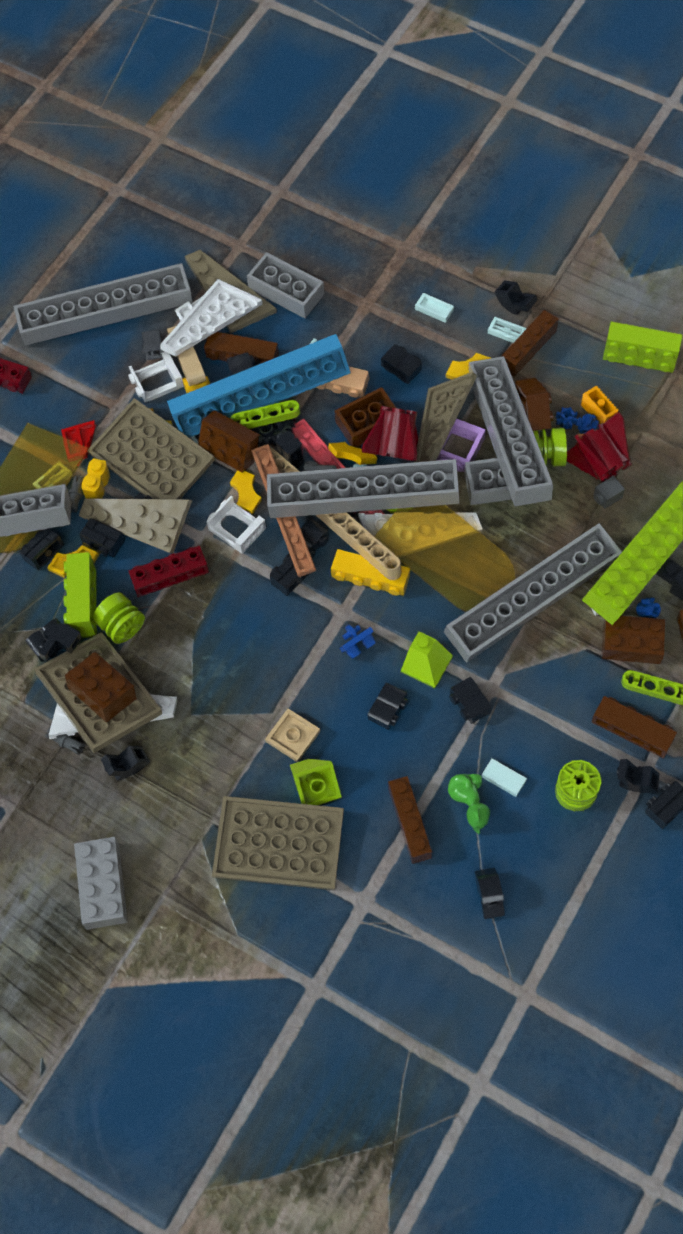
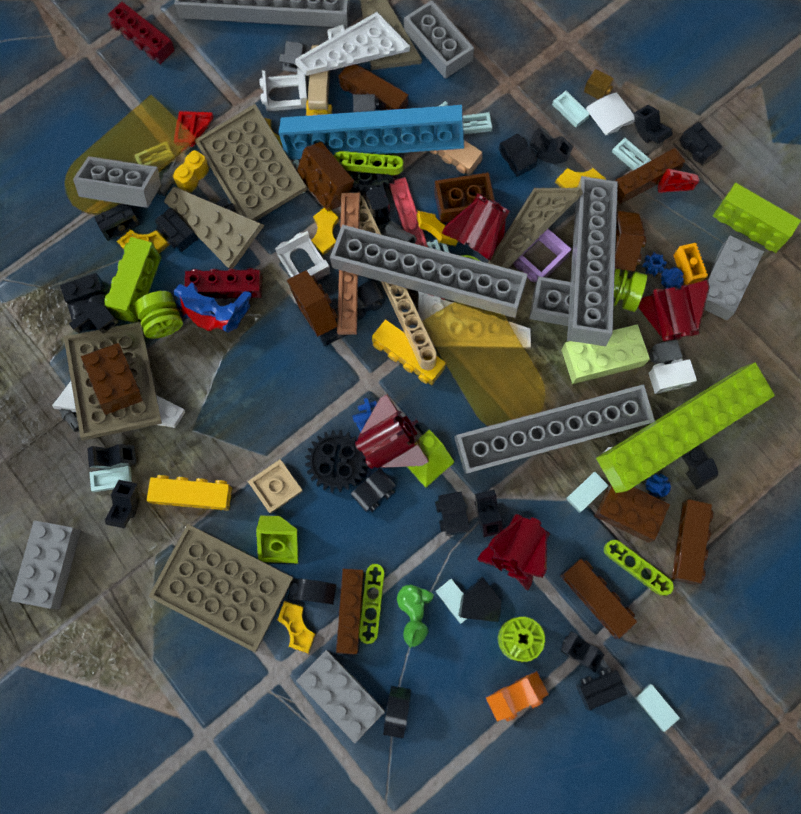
camera: 15 degrees right, 10 degrees up
(33, 620) = (83, 288): none -> black brick
(130, 785) = (108, 478): none -> light aqua tile
(153, 596) = (201, 309): none -> blue hips
(153, 800) = (125, 503): none -> black brick
(213, 770) = (189, 493): none -> yellow brick
(264, 555) = (313, 302): none -> reddish brown brick
(356, 350) = (477, 127): none -> light aqua tile
(359, 688) = (319, 459): none -> black gear
(366, 812) = (312, 591): none -> black brick
(370, 860) = (300, 636): none -> yellow tile
(385, 650) = (390, 438): none -> dark red brick
(427, 807) = (369, 603): none -> lime beam
(430, 349) = (550, 150): none -> black brick
(431, 897) = (341, 696): none -> light grey brick
(452, 278) = (599, 85): none -> pearl gold brick
(473, 299) = (611, 113): none -> white slope
(502, 688) = (488, 513): none -> black brick
(527, 768) = (480, 602): none -> black slope
(544, 707) = (519, 550): none -> dark red brick
(549, 518) = (622, 353): none -> yellowish green brick
(558, 338) = (677, 181): none -> red wing
(566, 299) = (700, 143): none -> black brick
(586, 639) = (587, 492): none -> light aqua tile
(595, 838) = (516, 697): none -> orange brick
(622, 510) = (672, 376): none -> white brick
(640, 405) = (730, 276): none -> light grey brick

